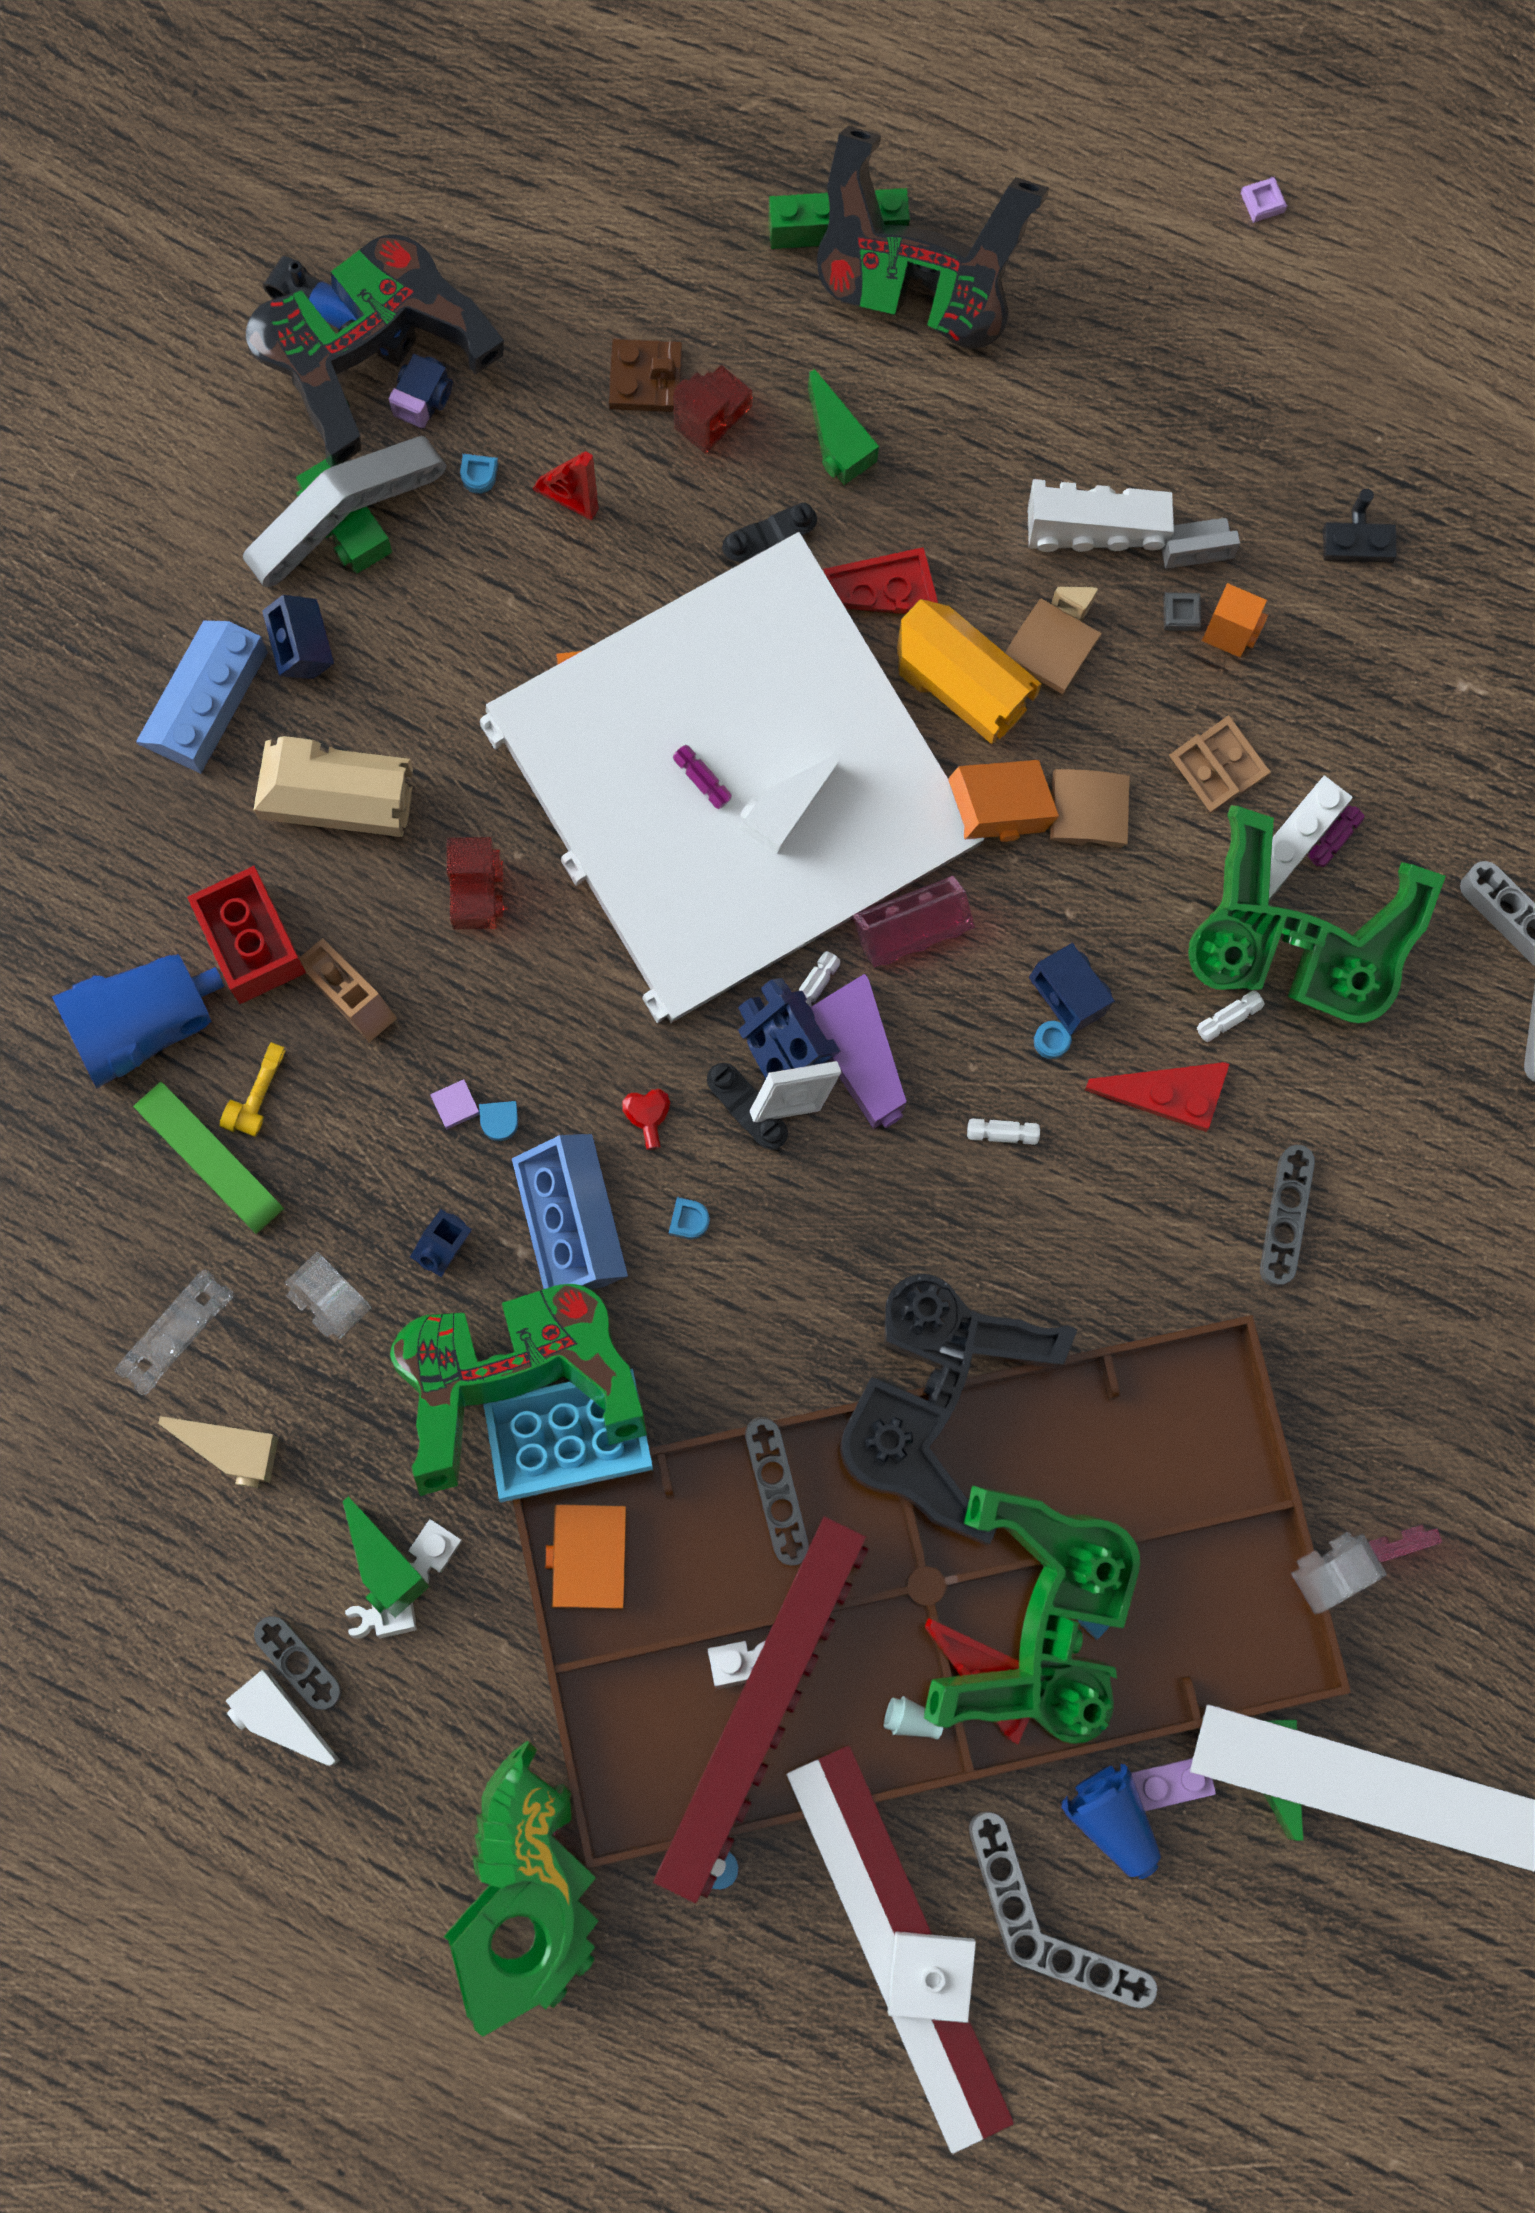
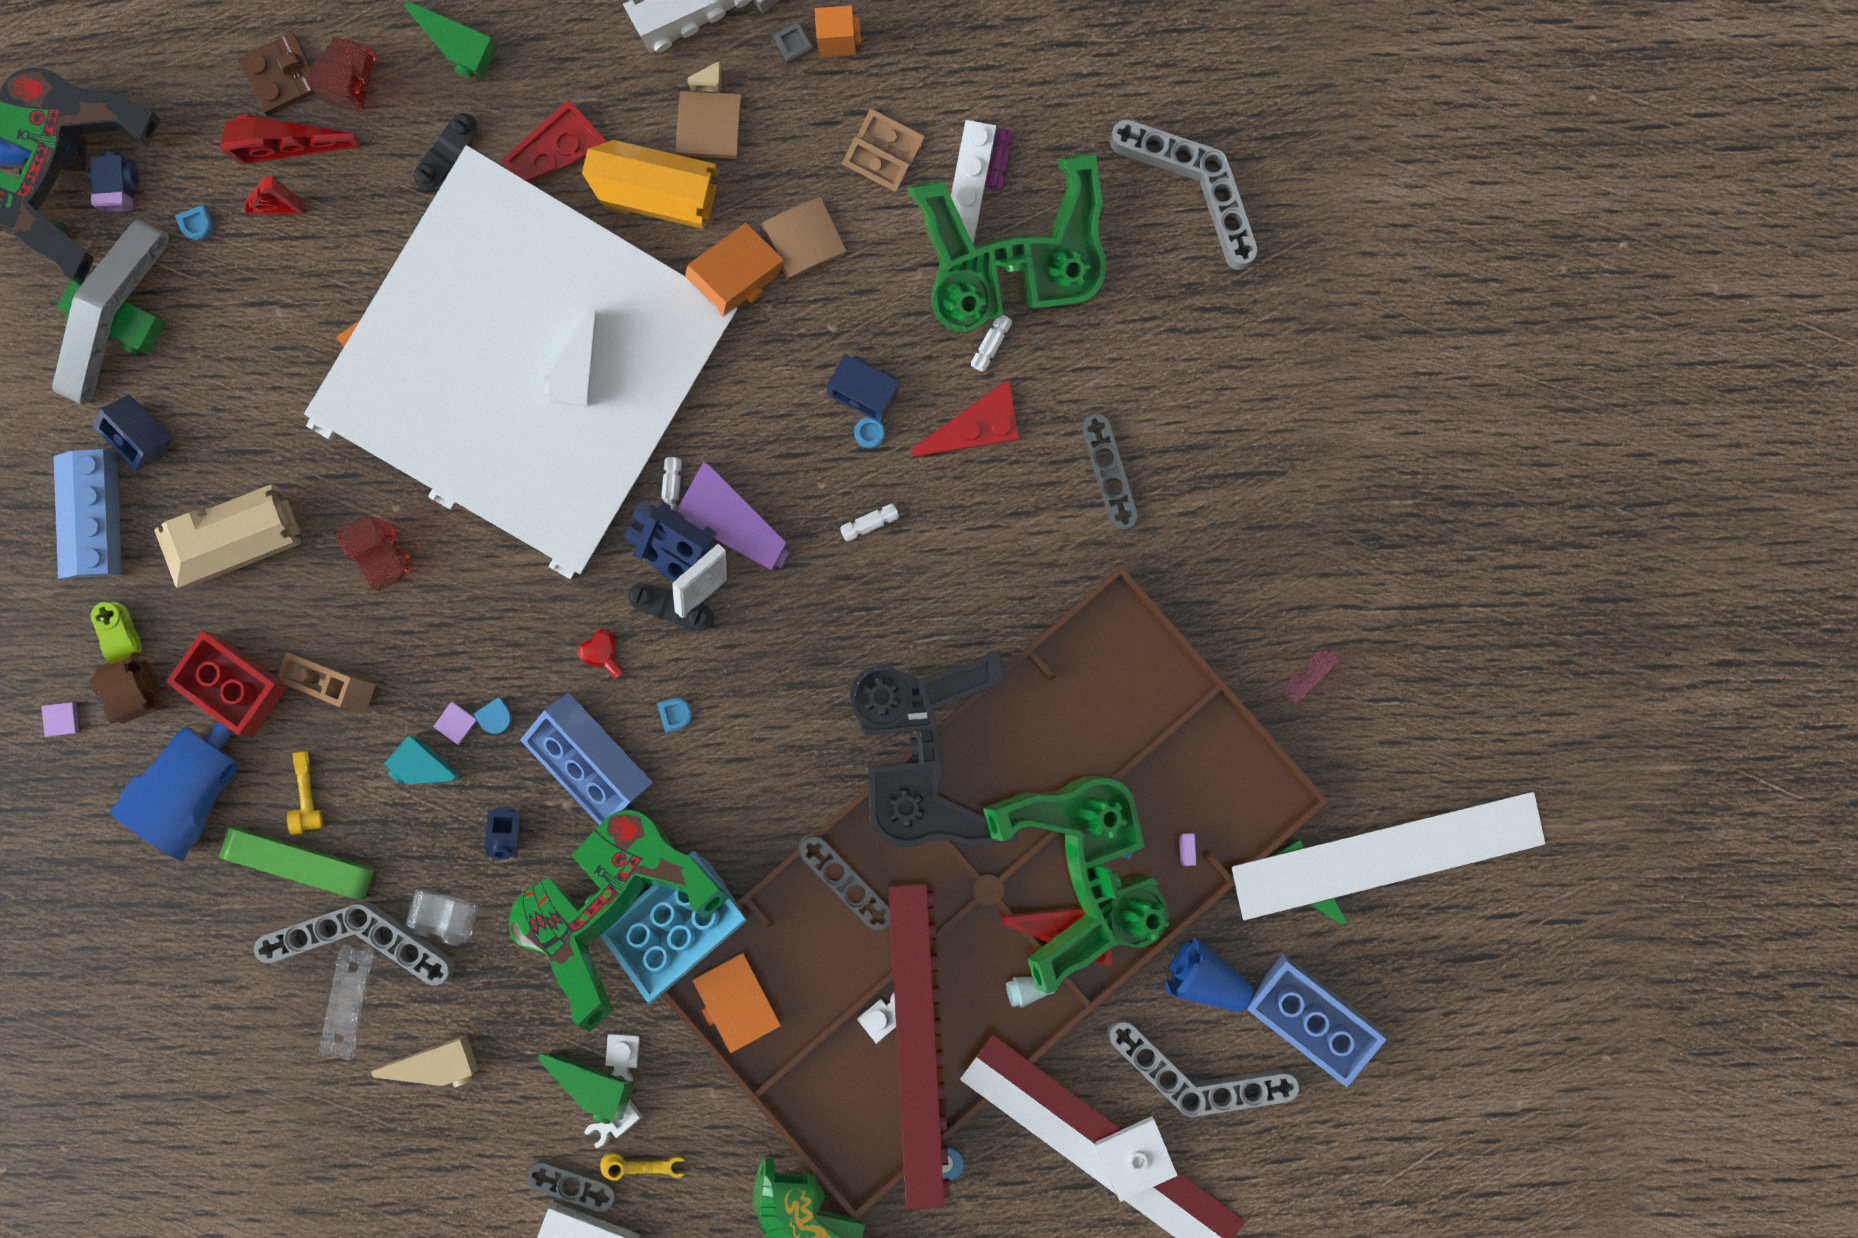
camera: 25 degrees left, 10 degrees up
(54, 881) = (60, 719): none -> lavender tile
(142, 884) = (126, 688): none -> reddish brown brick
(163, 830) = (118, 635): none -> lime piece
(223, 1255) = (369, 932): none -> light grey beam
(381, 1682) = (632, 1167): none -> yellow brick
(393, 1125) = (418, 763): none -> teal slope
(598, 429) = (264, 139): none -> red wedge
(702, 776) = (498, 379): magenta axle -> none
(914, 921) = (718, 400): clear pink brick -> none
(1167, 1661) = (1187, 849): none -> lavender tile
(1171, 1784) = (1232, 932): lavender plate -> none
(1212, 1933) = (1315, 1020): none -> medium blue slope
(1337, 1573) = (1277, 722): clear brick -> none

